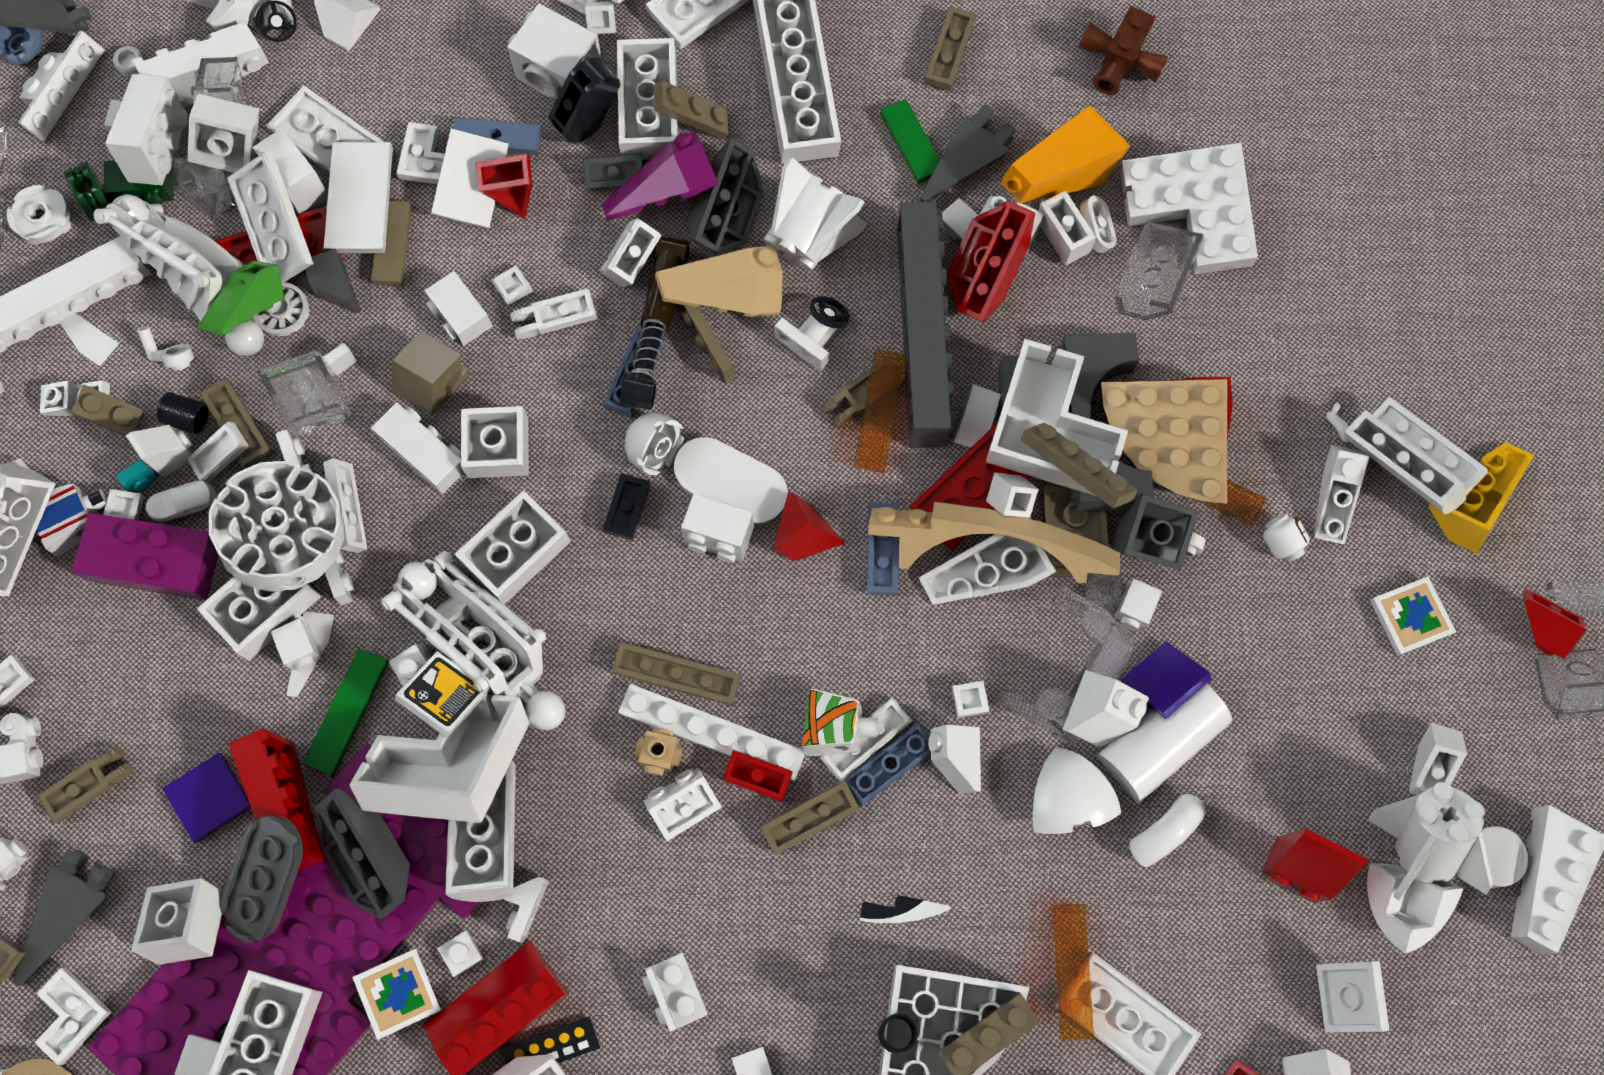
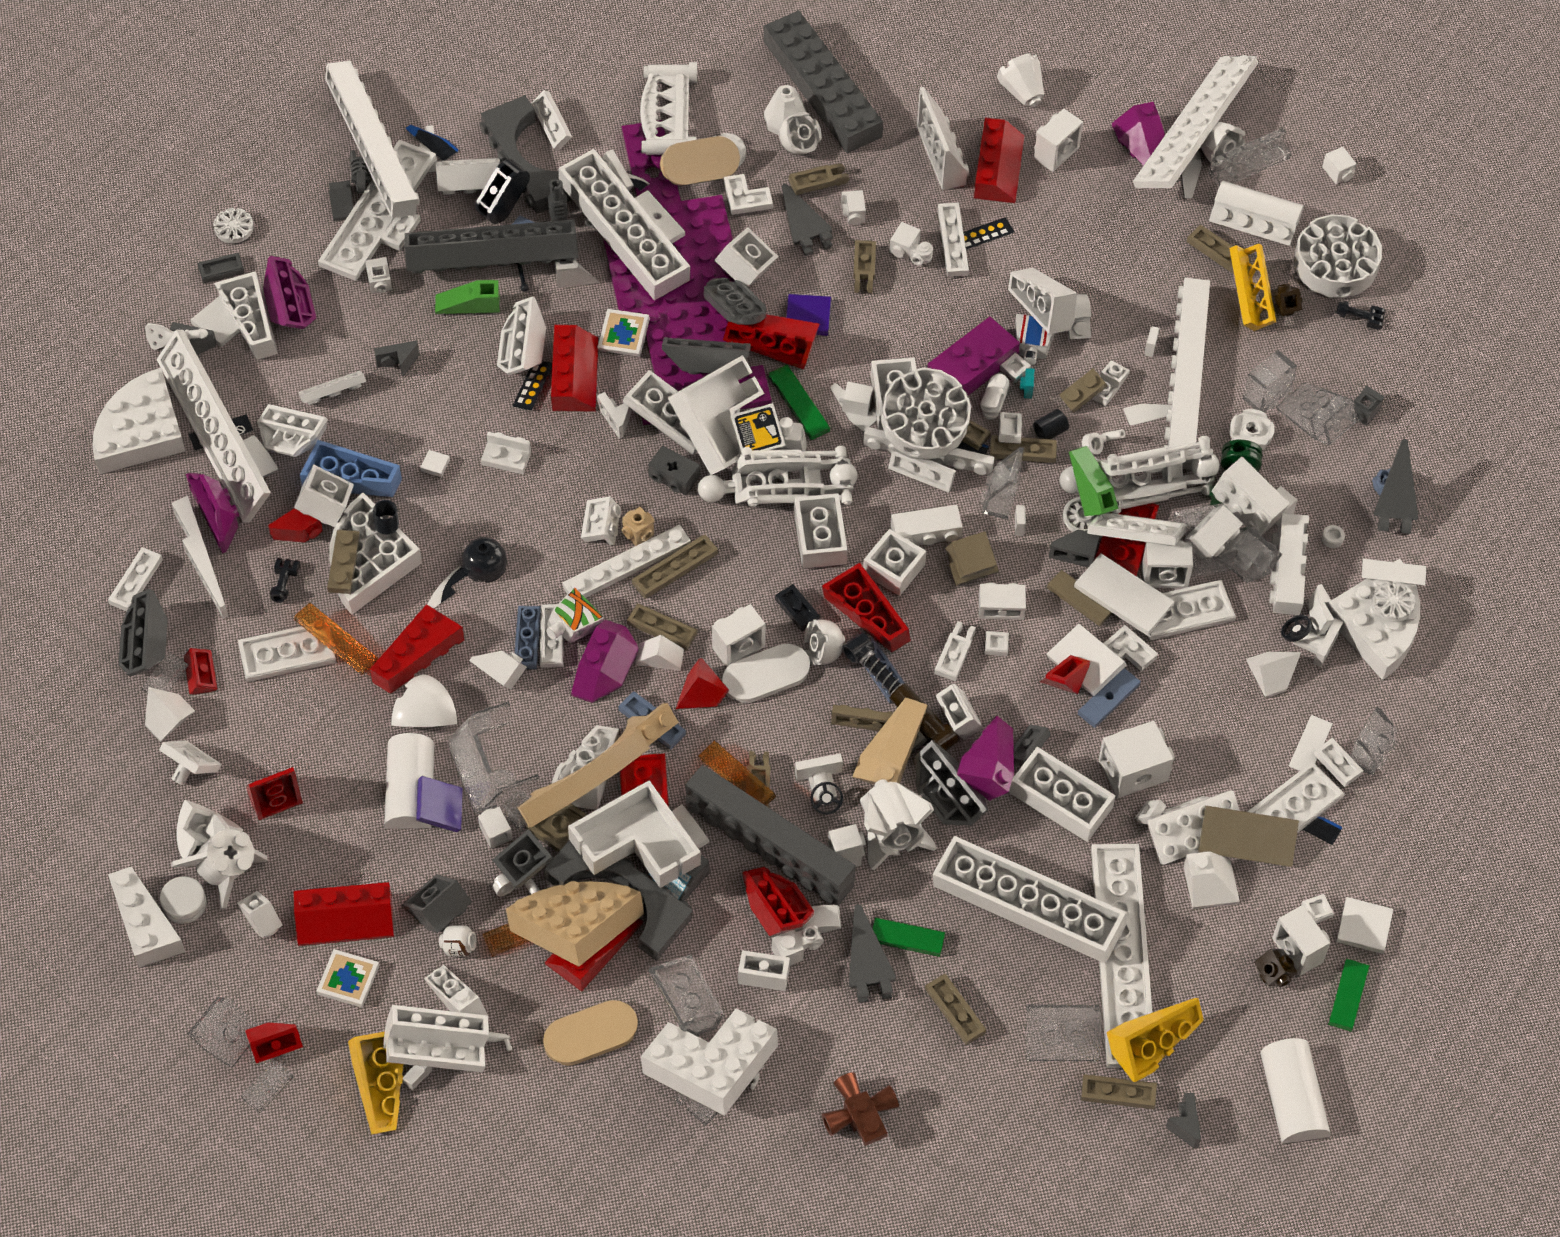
camera: 130 degrees right, 15 degrees down
(56, 84) = (1342, 486): white bracket -> none
(162, 448) = (1033, 398): white slope -> none
(460, 953) = (618, 375): white plate -> none
(542, 759) = (673, 470): none -> dark grey brick
(570, 437) = (866, 605): none -> red wedge
(584, 100) = (1084, 748): black brick -> none
(691, 109) = (1029, 807): dark tan plate -> none
(757, 776) = (580, 563): red slope -> none
(760, 631) = (659, 624): none -> dark tan tile
(799, 605) = (660, 653): none -> white slope
(809, 817) = (535, 575): dark tan plate -> none
(835, 894) = (484, 560): none -> black cylinder
(851, 652) = (604, 662): none -> magenta wedge
(876, 244) = (848, 843): none -> white brick
(970, 699) = (524, 700): white plate -> none
(1004, 867) = (415, 648): none -> red wedge
(1012, 495) = (612, 787): white brick -> none
(1070, 159) = (808, 997): light orange slope -> none
(1079, 465) = (597, 817): dark tan plate -> none
(1099, 220) = (752, 998): white plate -> none
(1104, 709) = (455, 754): white slope -> none
(1168, 831) = (359, 741): white cylinder -> none
(1256, 344) = (590, 1032): none -> tan tile
(1266, 593) = (438, 903): none -> dark grey slope
(1358, 678) = (343, 914): none -> red slope

